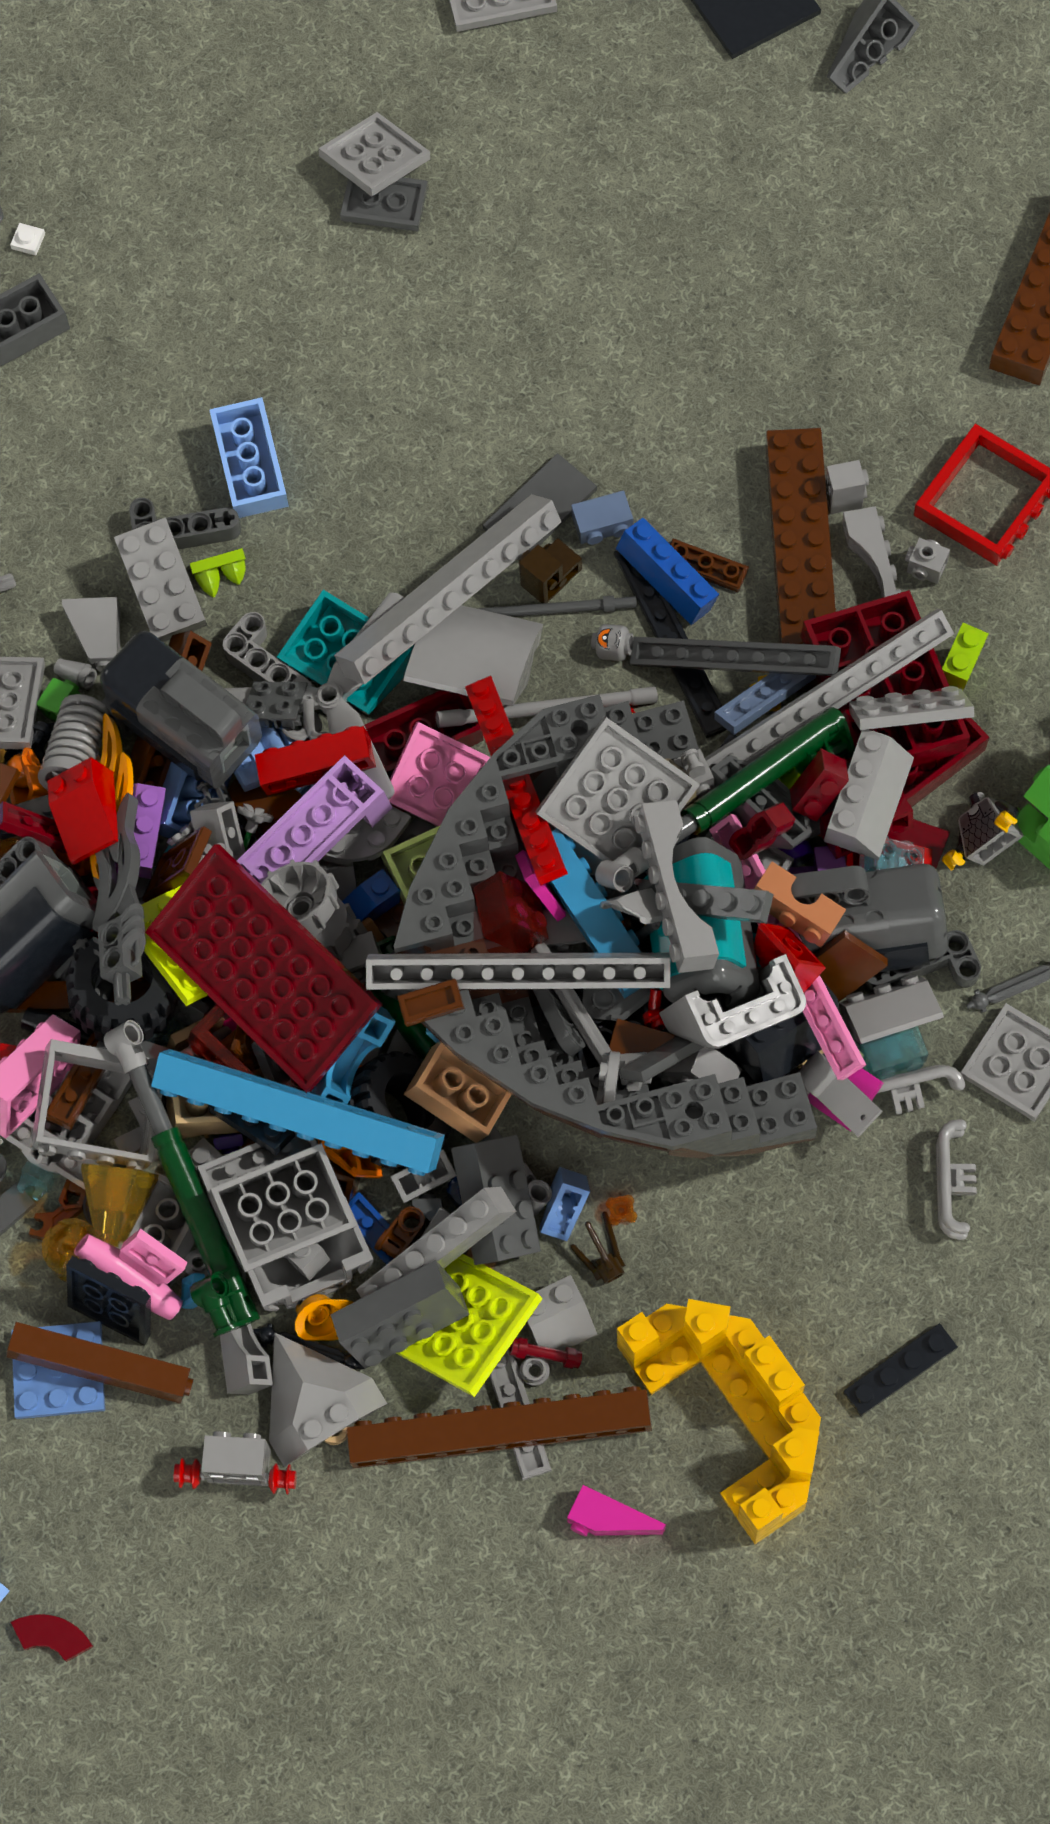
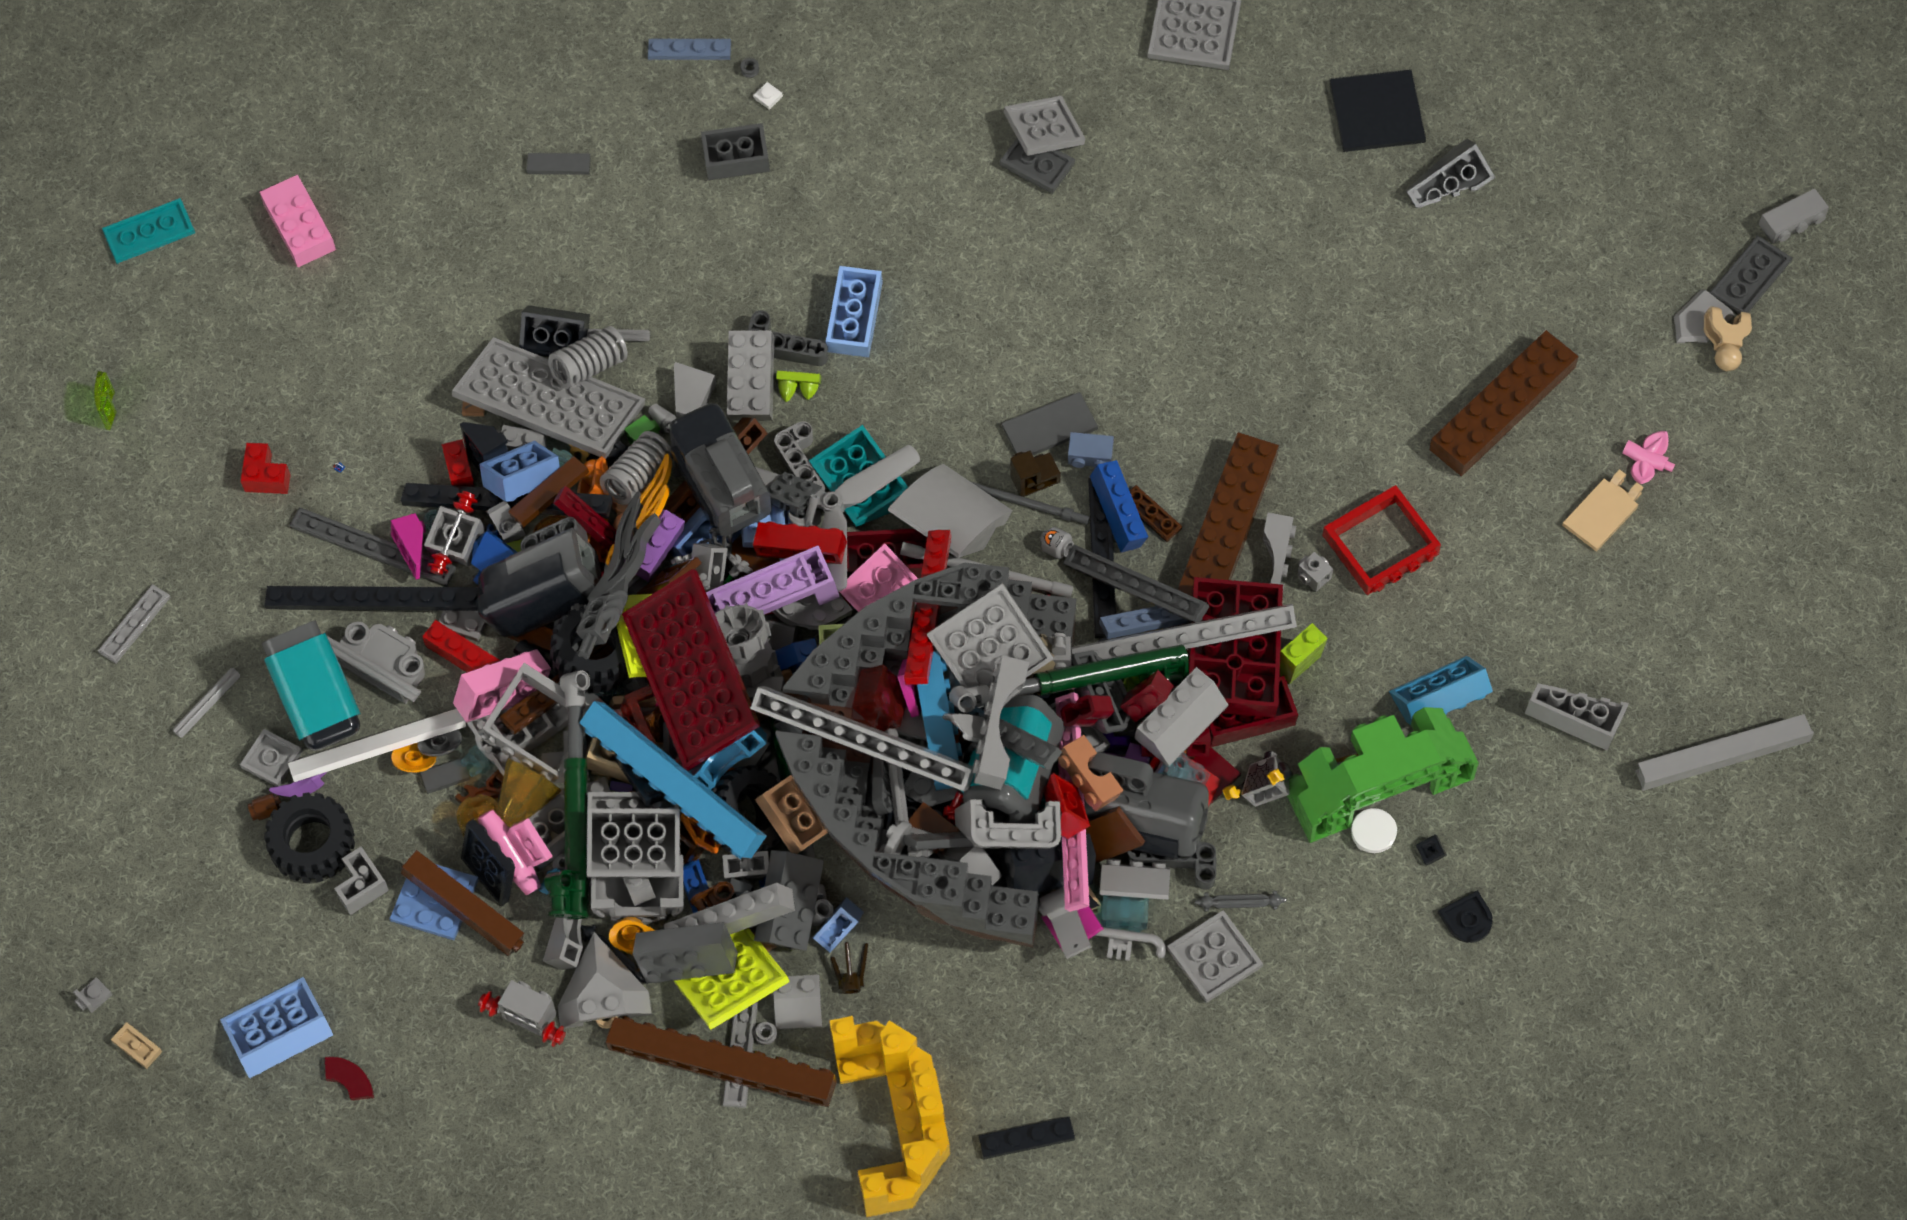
camera: 20 degrees right, 5 degrees down
(84, 808) = (620, 512): red slope -> none
(430, 1002) = (790, 735): reddish brown tile -> none
(447, 589) = (951, 457): light grey brick -> none
(570, 1357) = (794, 1034): dark red bar -> none
(605, 1516) = (768, 1153): dark pink slope -> none
(625, 1202) = (876, 940): clear orange plate -> none
(846, 486) = (1278, 494): light grey brick -> none
(911, 709) = (1240, 668): light grey plate -> none
(952, 1180) = (1125, 1018): light grey piece -> none

